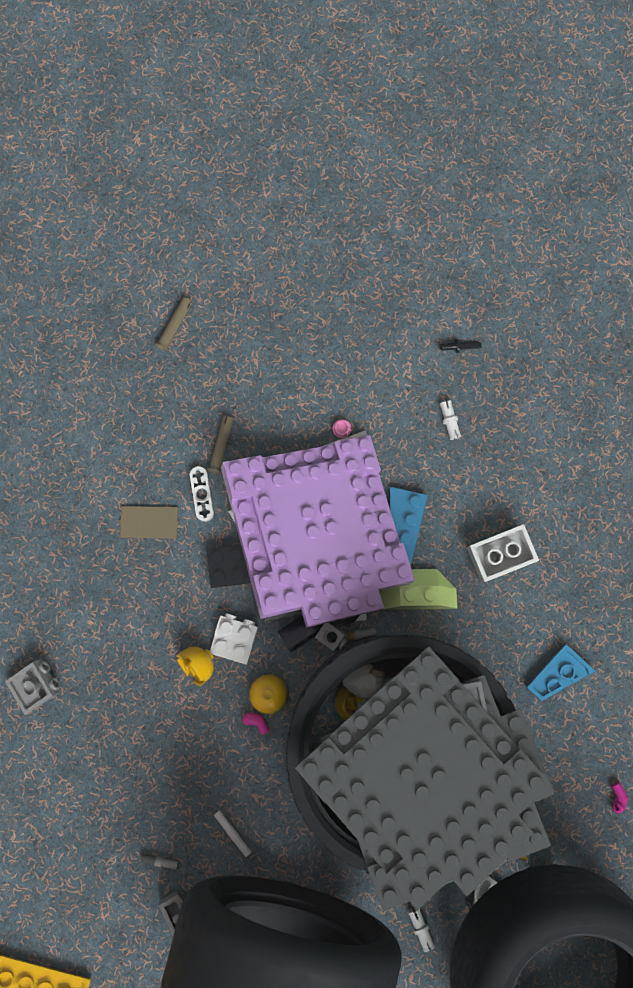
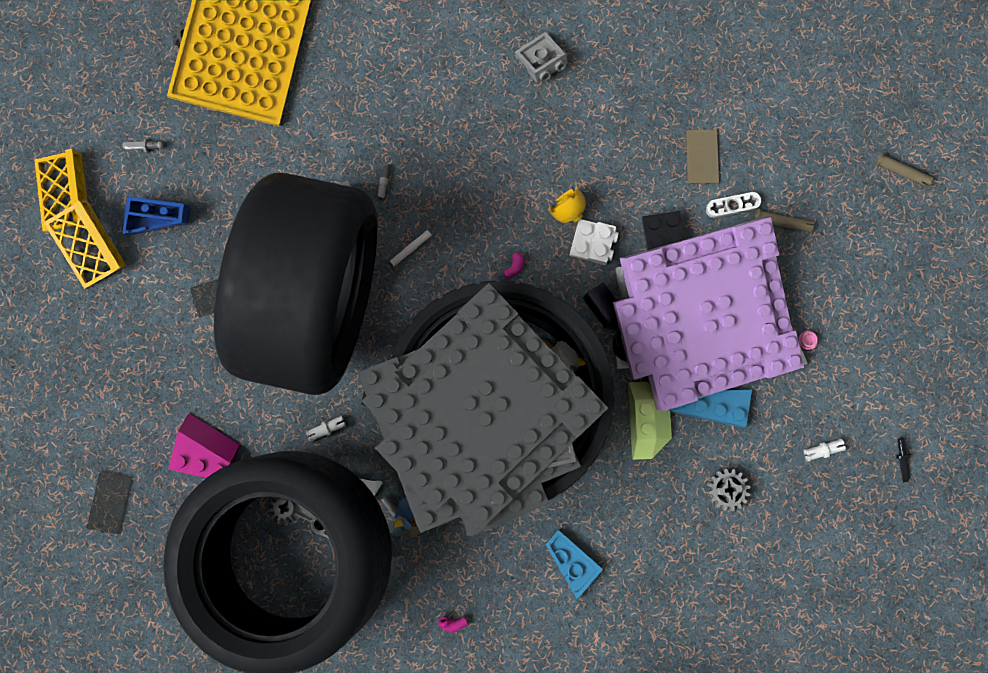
camera: 90 degrees right, 0 degrees up
(268, 694) = (542, 274): yellow cylinder -> none
(324, 636) = (605, 329): light grey brick -> none
(487, 507) = (727, 481): none -> light grey gear
(502, 553) = (691, 503): white brick -> none

